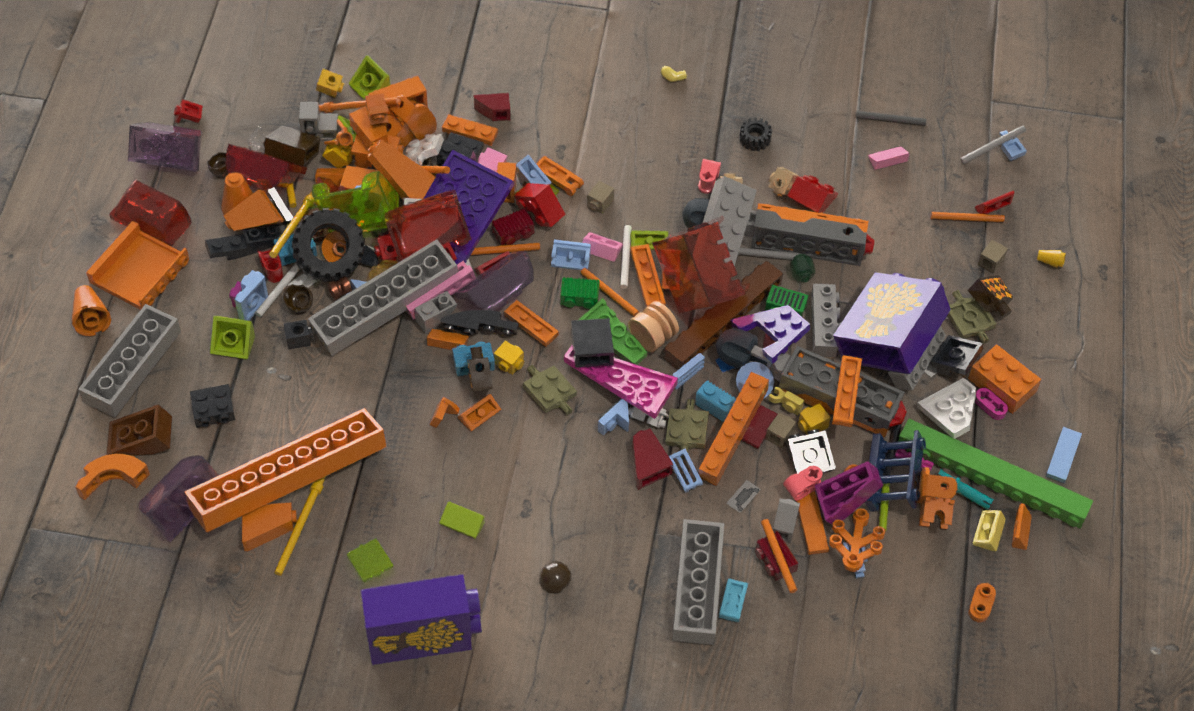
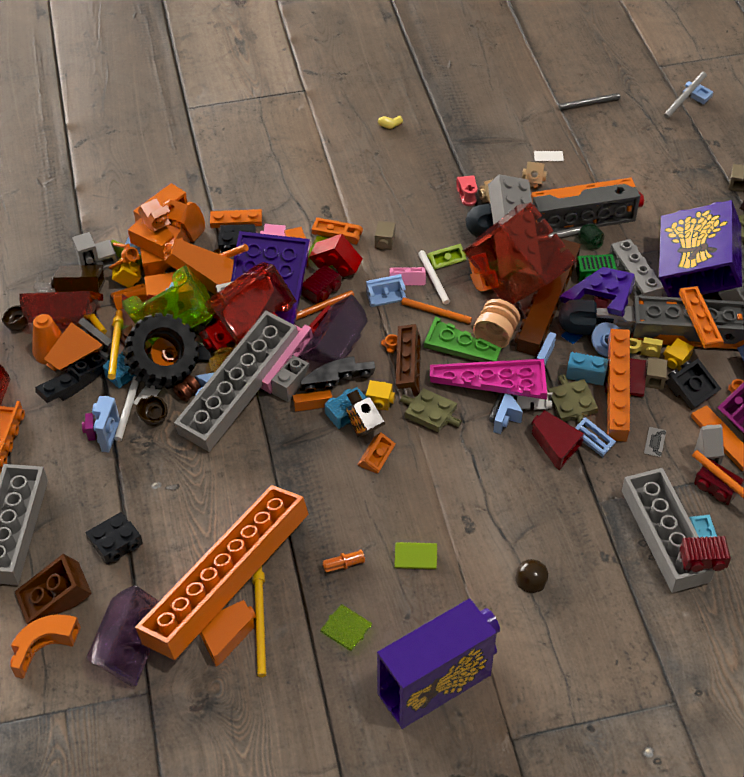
camera: 20 degrees left, 5 degrees down
(232, 337) = (103, 467): lime slope -> none
(271, 266) = (110, 388): red piece -> none
(298, 327) = (167, 442): black brick -> none
(330, 83) = (88, 217): yellow brick -> none
(330, 107) = (98, 237): orange bar -> none
(369, 78) = (122, 203): lime slope -> none
(396, 500) = (343, 561): none -> orange axle
(425, 148) = (209, 239): white plate -> none
(443, 407) = (342, 461): orange tile -> none
(493, 106) = (248, 192): dark red slope -> none
(529, 172) = (314, 232): light blue slope -> none
(531, 323) = (382, 358): orange plate -> none
(549, 306) = (390, 343): none -> orange plate
(554, 332) = (408, 358): none -> reddish brown fence
(579, 292) = (412, 314): green brick -> none
(592, 342) = (452, 354): black brick -> none
(647, 274) = (462, 285): orange plate -> none
(710, 616) = (705, 553): none -> dark red brick
(752, 141) = (483, 140): black tyre -> none
(803, 482) = (705, 408): coral piece -> none
(812, 193) = (562, 175): red slope -> none
(814, 165) = (548, 155): none -> white sticker
(888, 157) = (607, 131): bright pink slope -> none
(967, 217) = (699, 155): orange bar -> none
(995, 203) = (713, 138): red slope -> none

